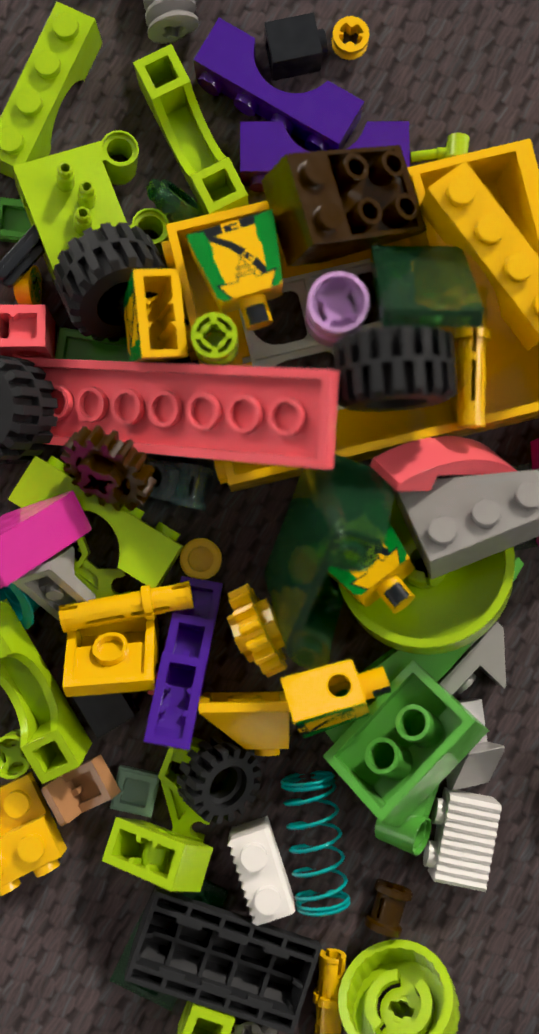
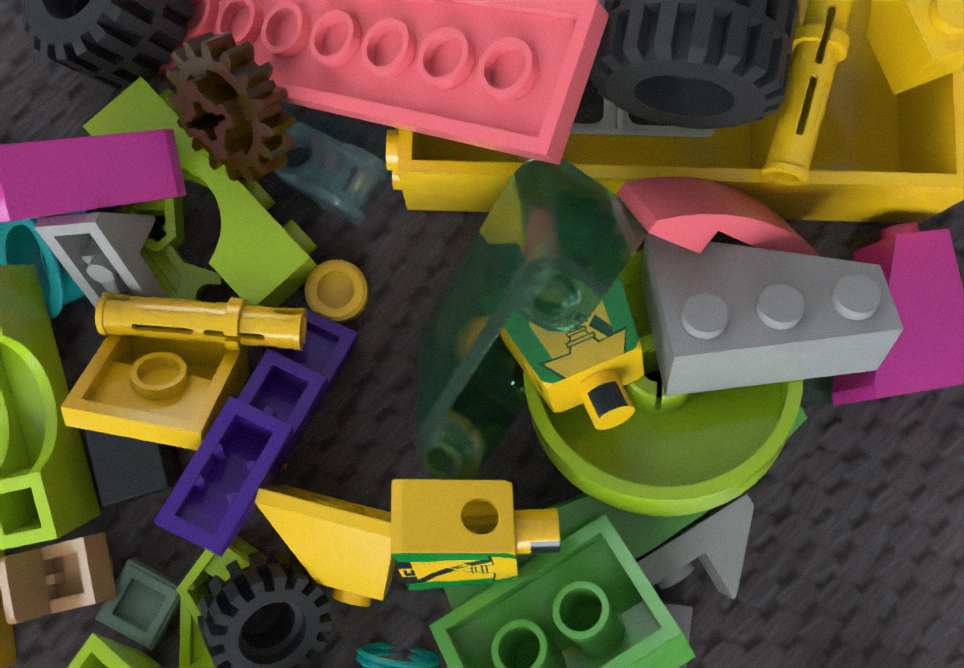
camera: 20 degrees right, 5 degrees down
(256, 630) = (382, 408): yellow gear -> none

